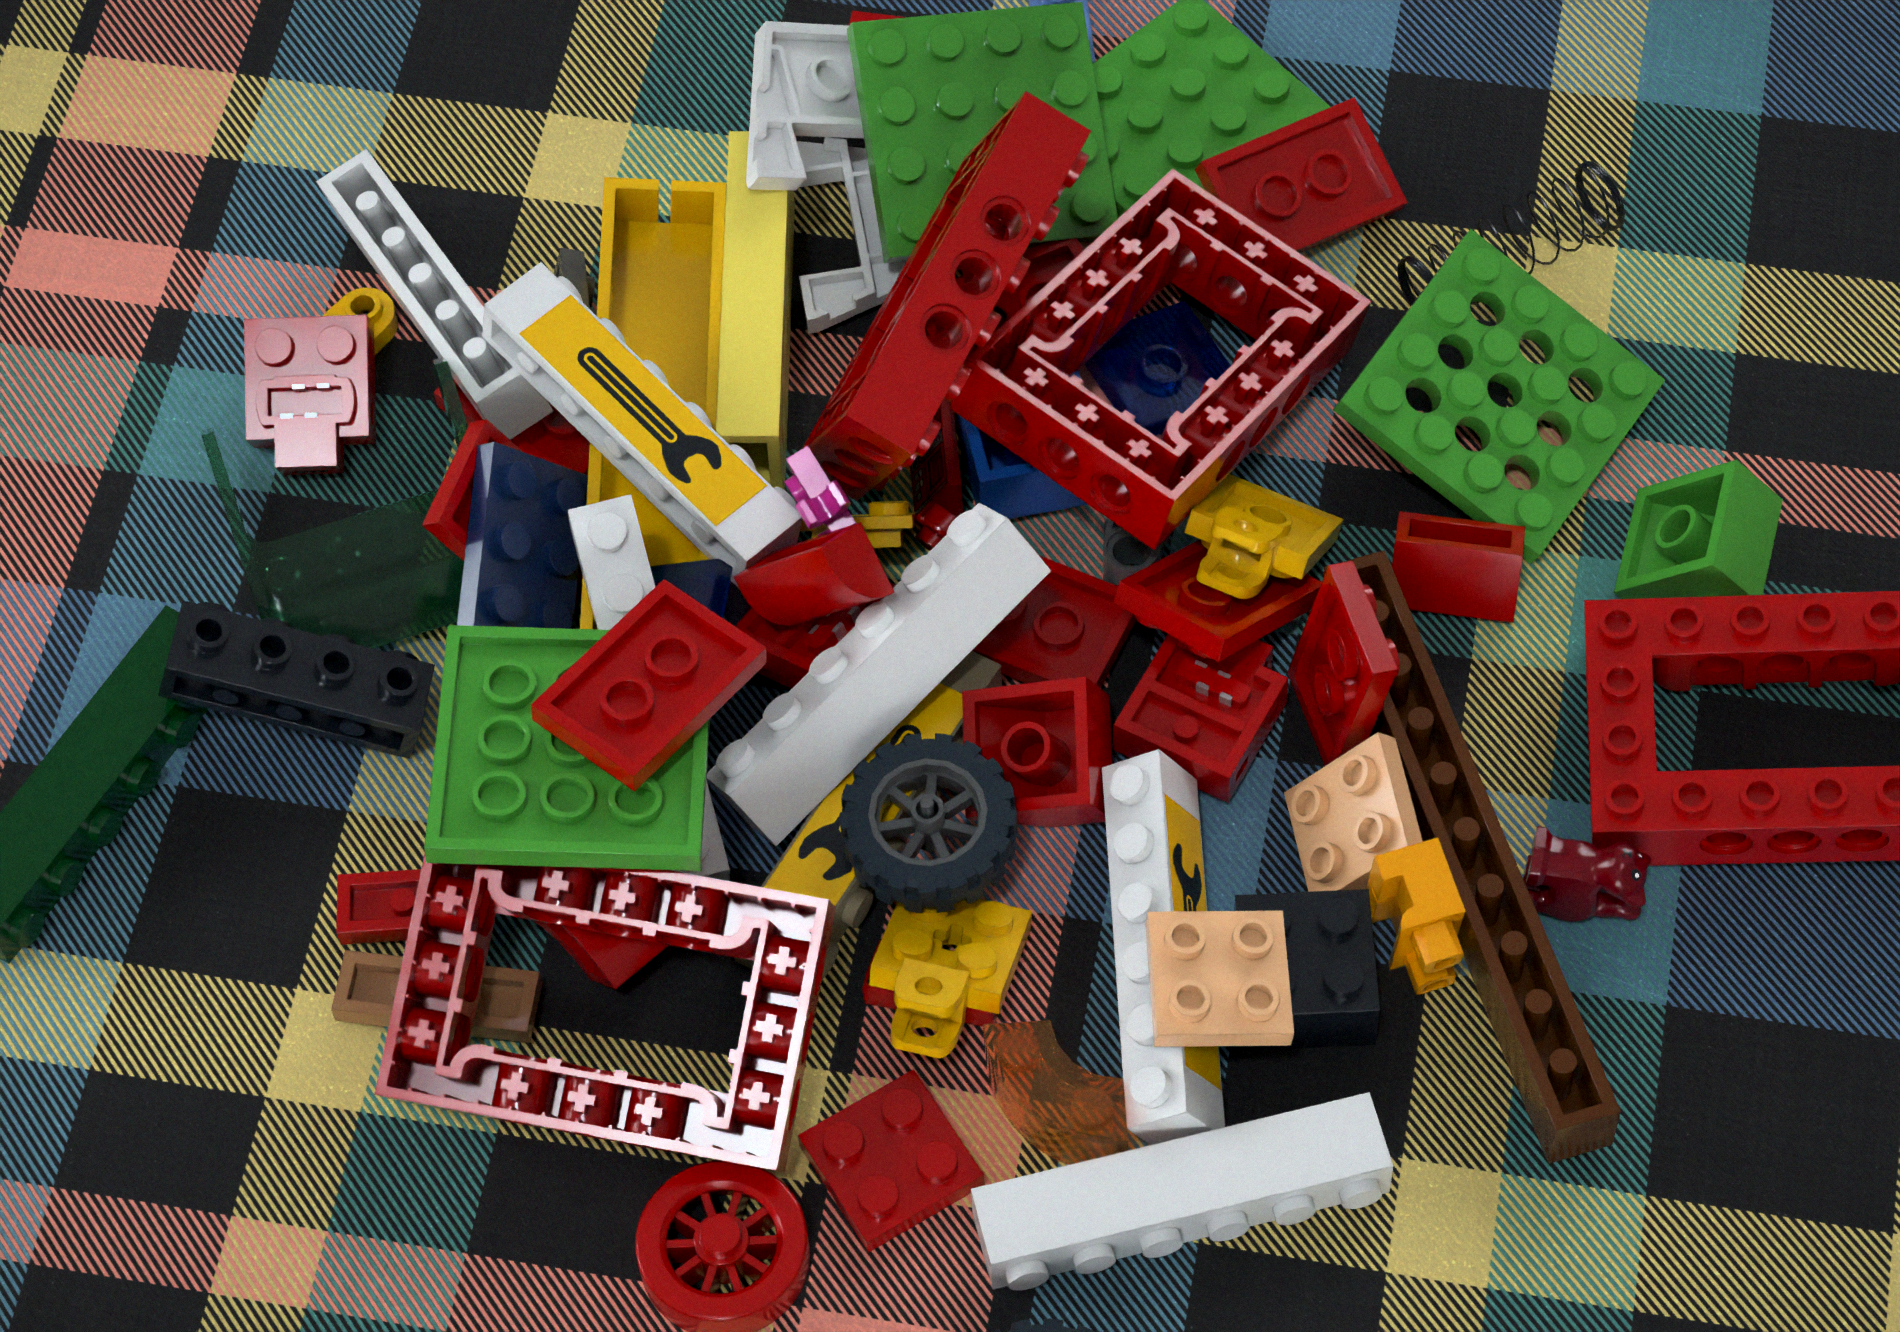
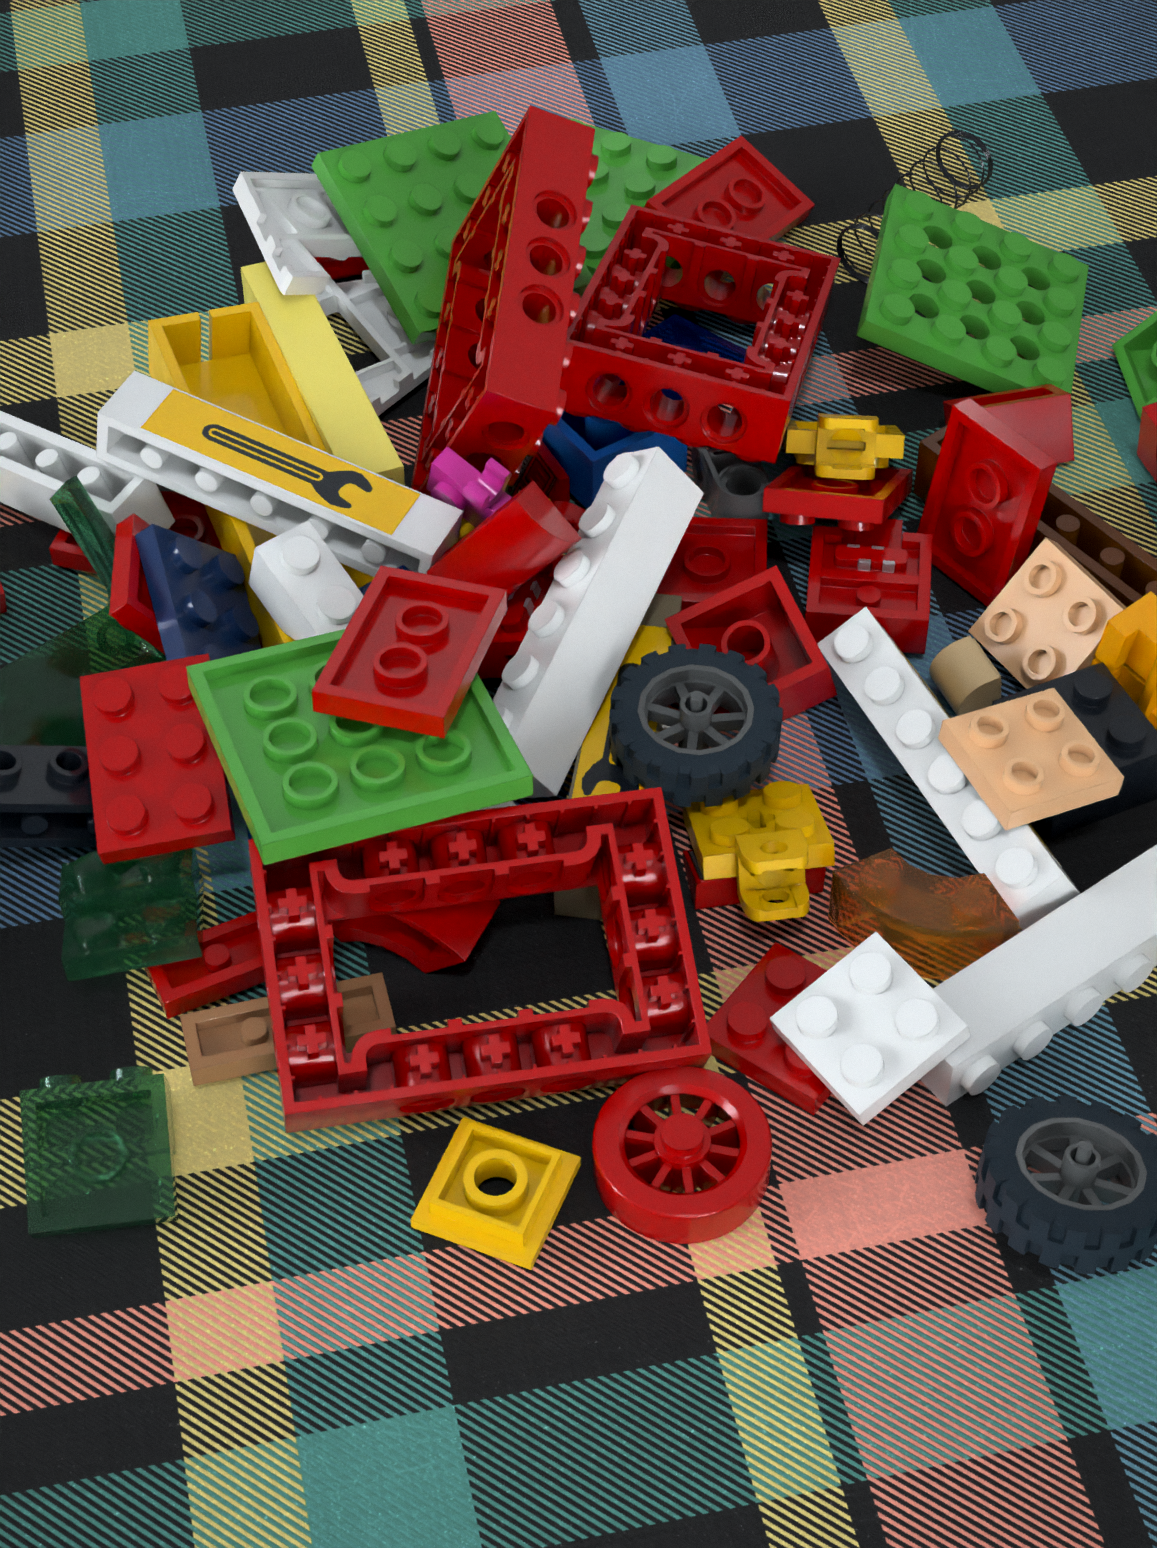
camera: 25 degrees left, 10 degrees down
(223, 1060) = (98, 1152): none -> clear green plate
(346, 827) = (130, 913): none -> clear green plate
(394, 688) = (152, 763): none -> red plate
(551, 1259) = (503, 1225): none -> yellow piece
(934, 1196) = (870, 1028): none -> white plate
(1244, 854) = (965, 676): none -> tan brick

